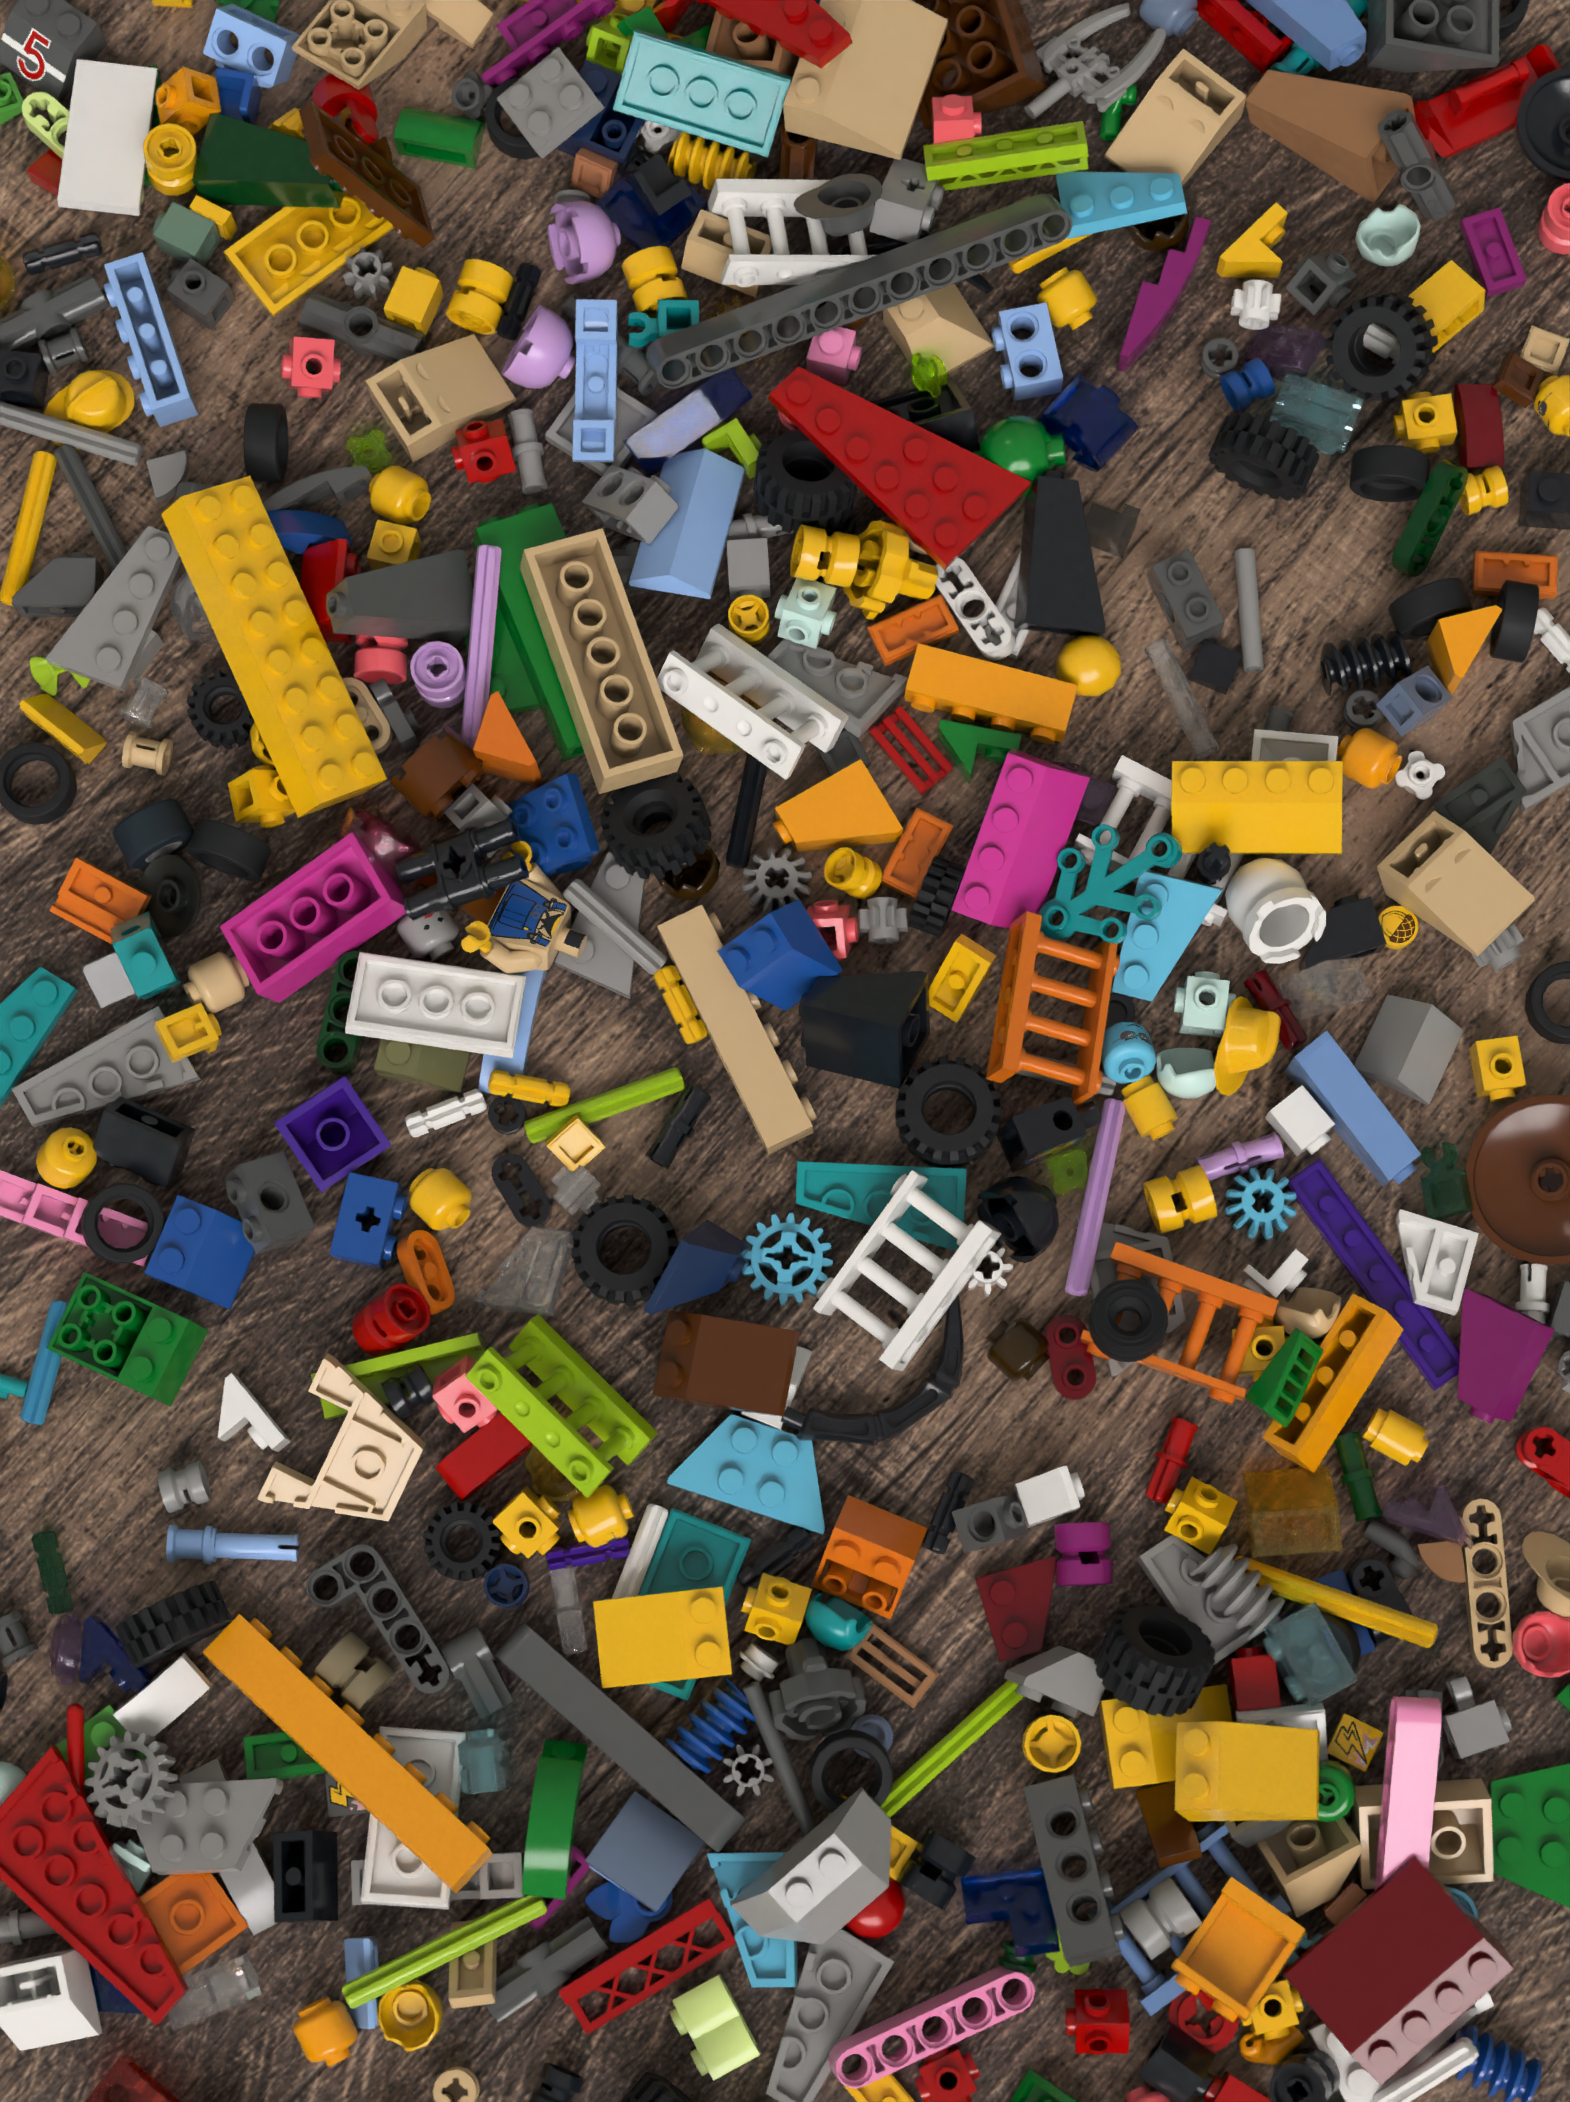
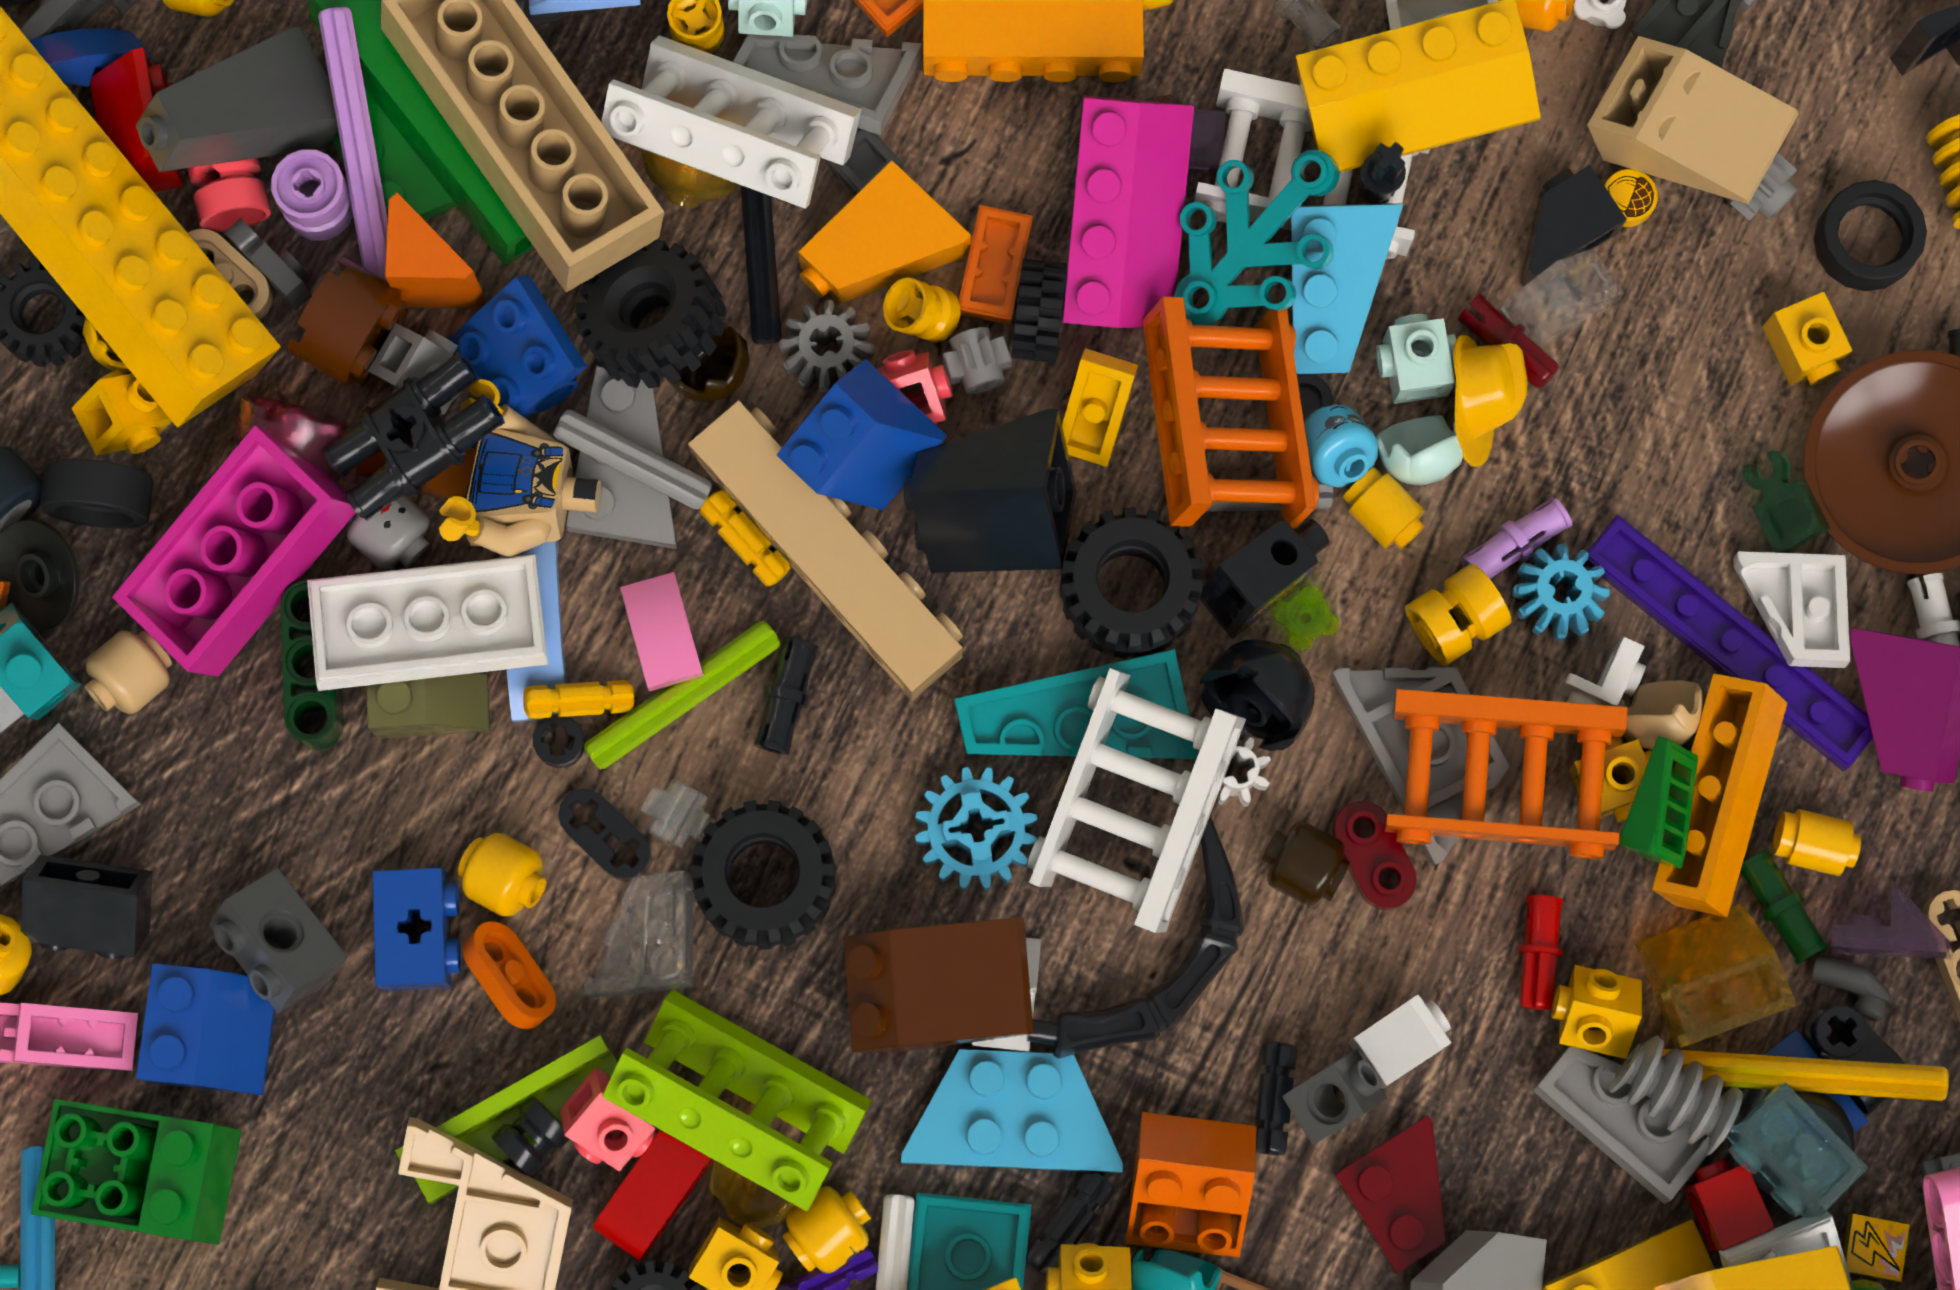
camera: 25 degrees left, 0 degrees up
(125, 1191) = (80, 977): black tyre -> none
(188, 1032) = (108, 746): yellow bracket -> none
(242, 1407) = (314, 1219): white slope -> none
(332, 1133) = (336, 827): dark purple slope -> none
(391, 1320) = (481, 1050): red wheel -> none
(393, 545) = (204, 41): yellow brick -> none
(445, 1112) = (477, 760): white axle -> none
(575, 1143) = (658, 754): yellow tile -> none
(601, 1056) = (661, 631): none -> bright pink slope
(699, 1267) = (869, 870): dark blue slope -> none
(889, 724) = (963, 119): red tile -> none
(966, 741) = (1018, 104): green slope -> none
(1083, 1538) = (1459, 1082): magenta wheel -> none
(1095, 1198) = (1350, 642): lavender axle -> none
(1134, 1297) = (1449, 754): black tyre -> none
(1154, 1659) = (1599, 1214): black tyre -> none
(1274, 909) = (1473, 213): white tile -> none
(1301, 1122) = (1583, 475): white brick -> none
(1354, 1109) = (1644, 441): medium blue slope -> none
(1409, 1047) = (1687, 344): light grey slope -> none
(1443, 1560) = (1920, 983): medium nougat tile -> none

